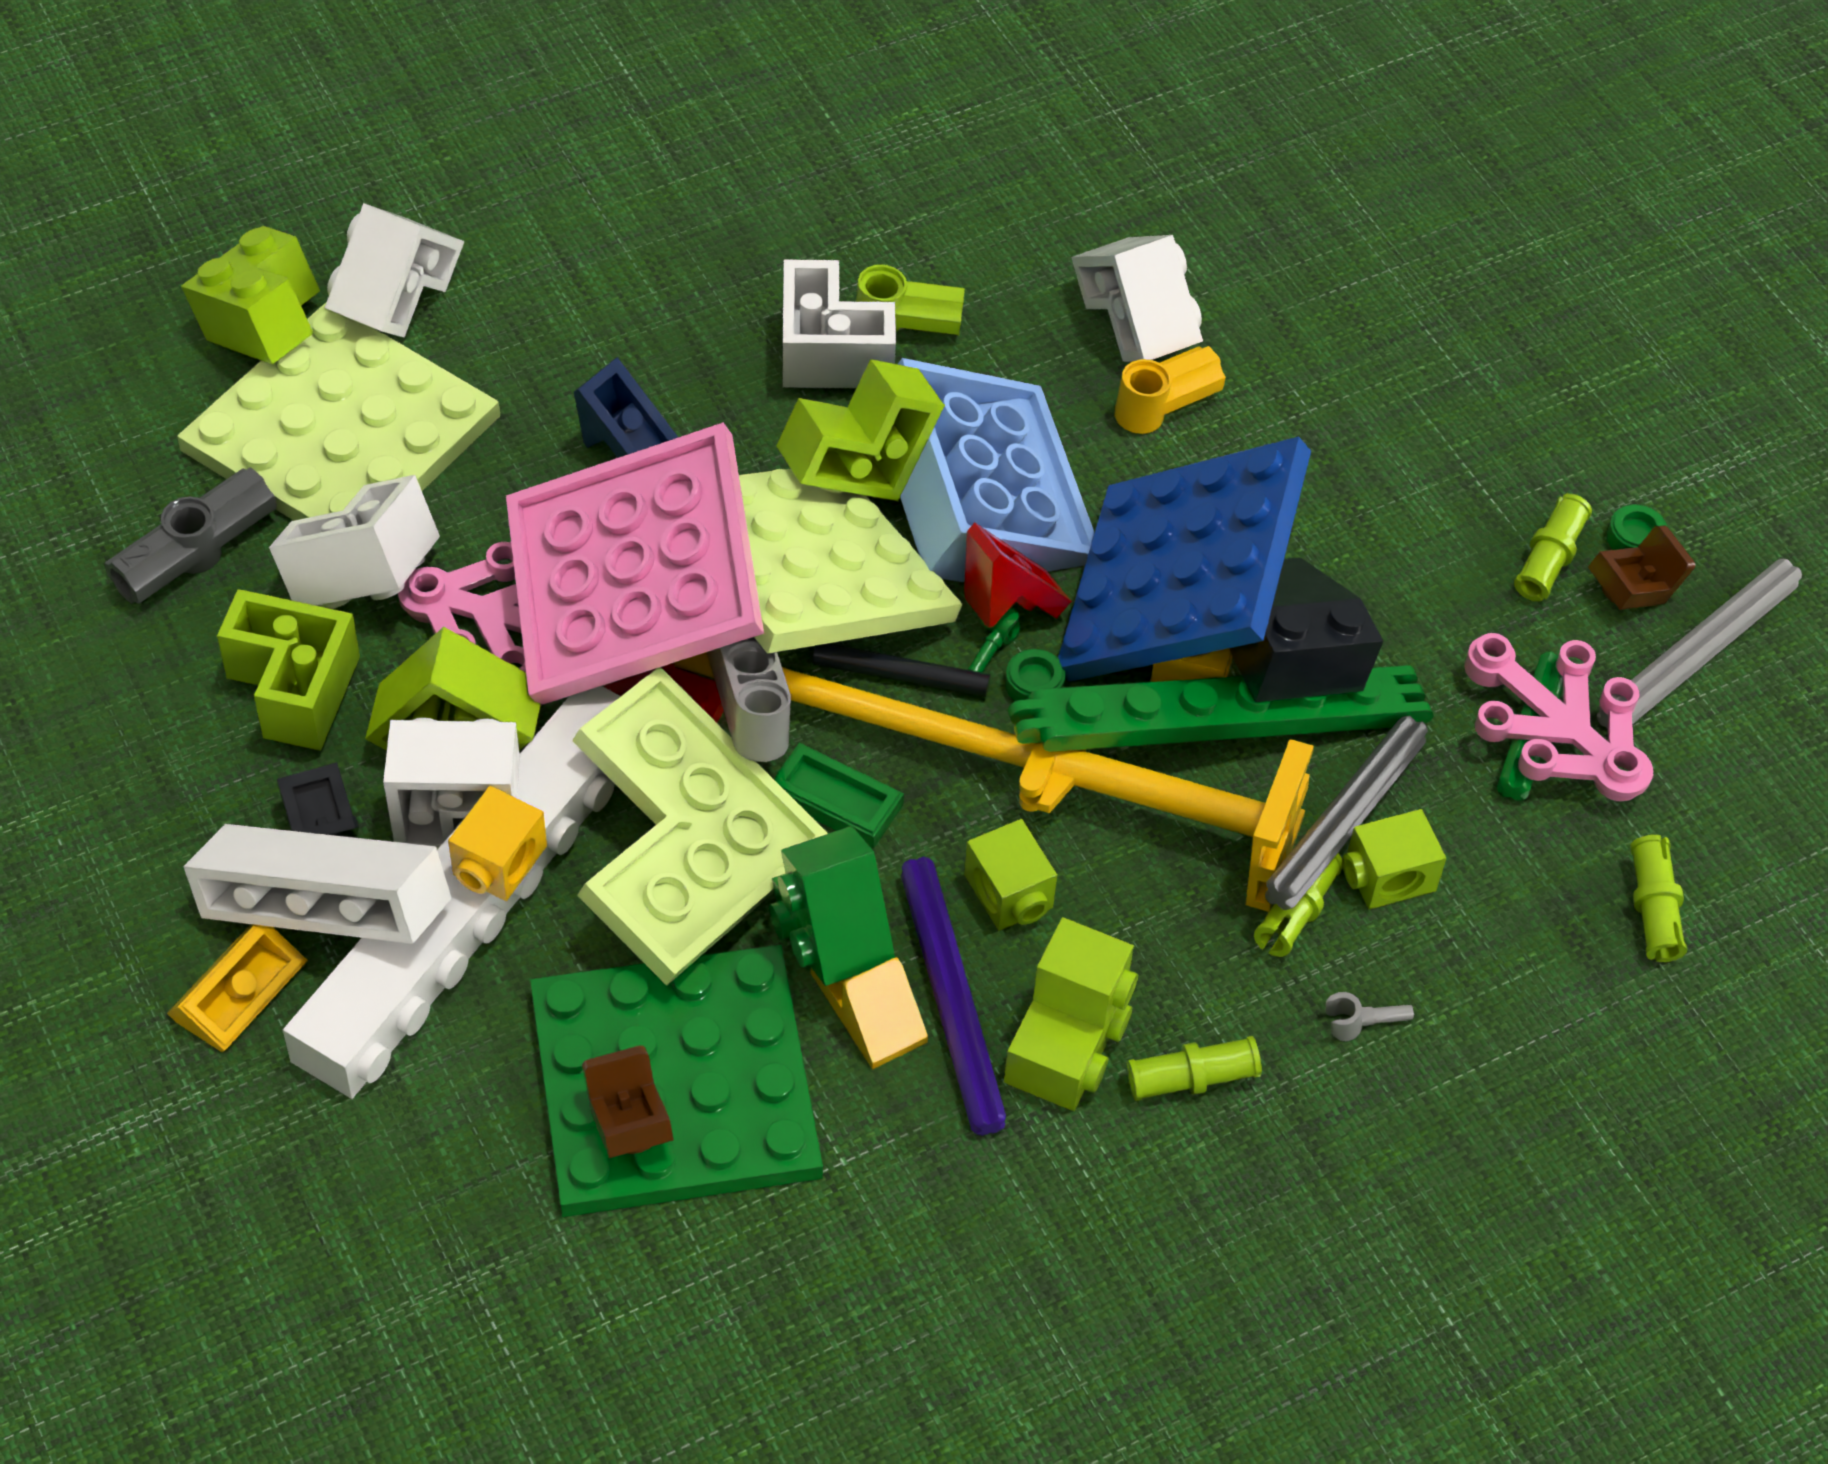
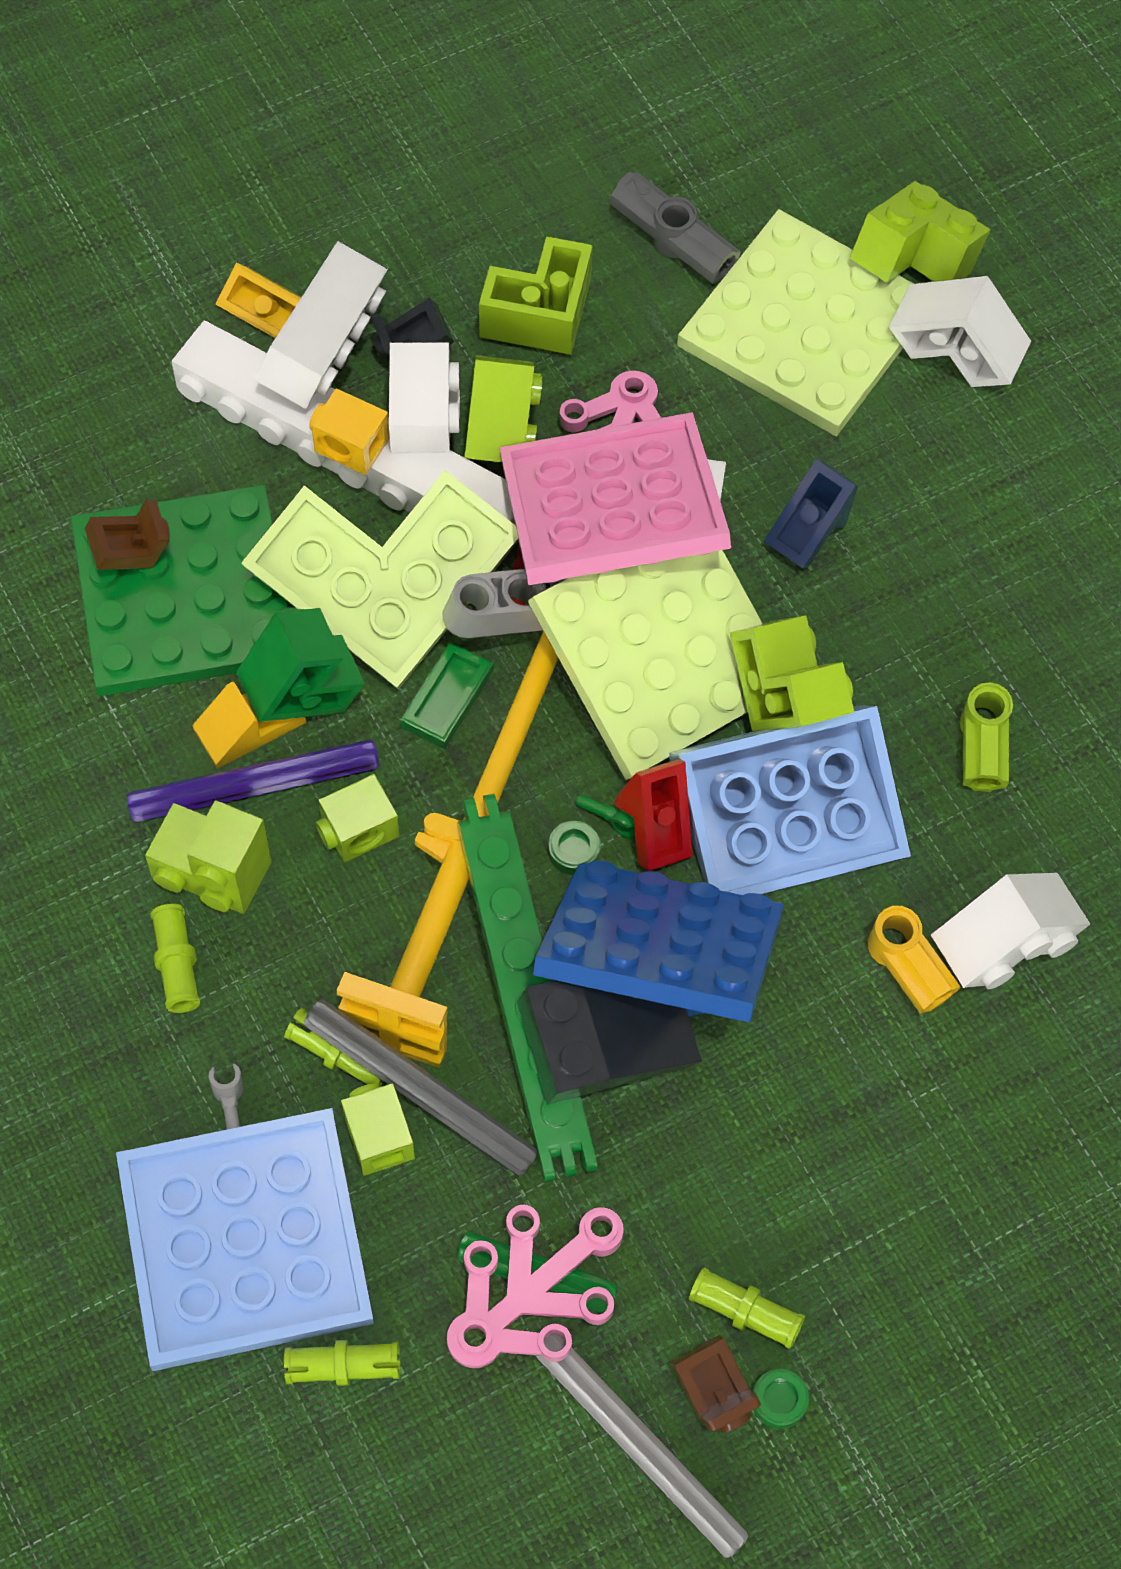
camera: 90 degrees right, 10 degrees up
(360, 549) = (657, 336): white brick -> none
(826, 338) = (929, 658): white brick -> none
(902, 669) = (574, 760): black bar -> none
(1530, 995) = (243, 1239): none -> light blue plate

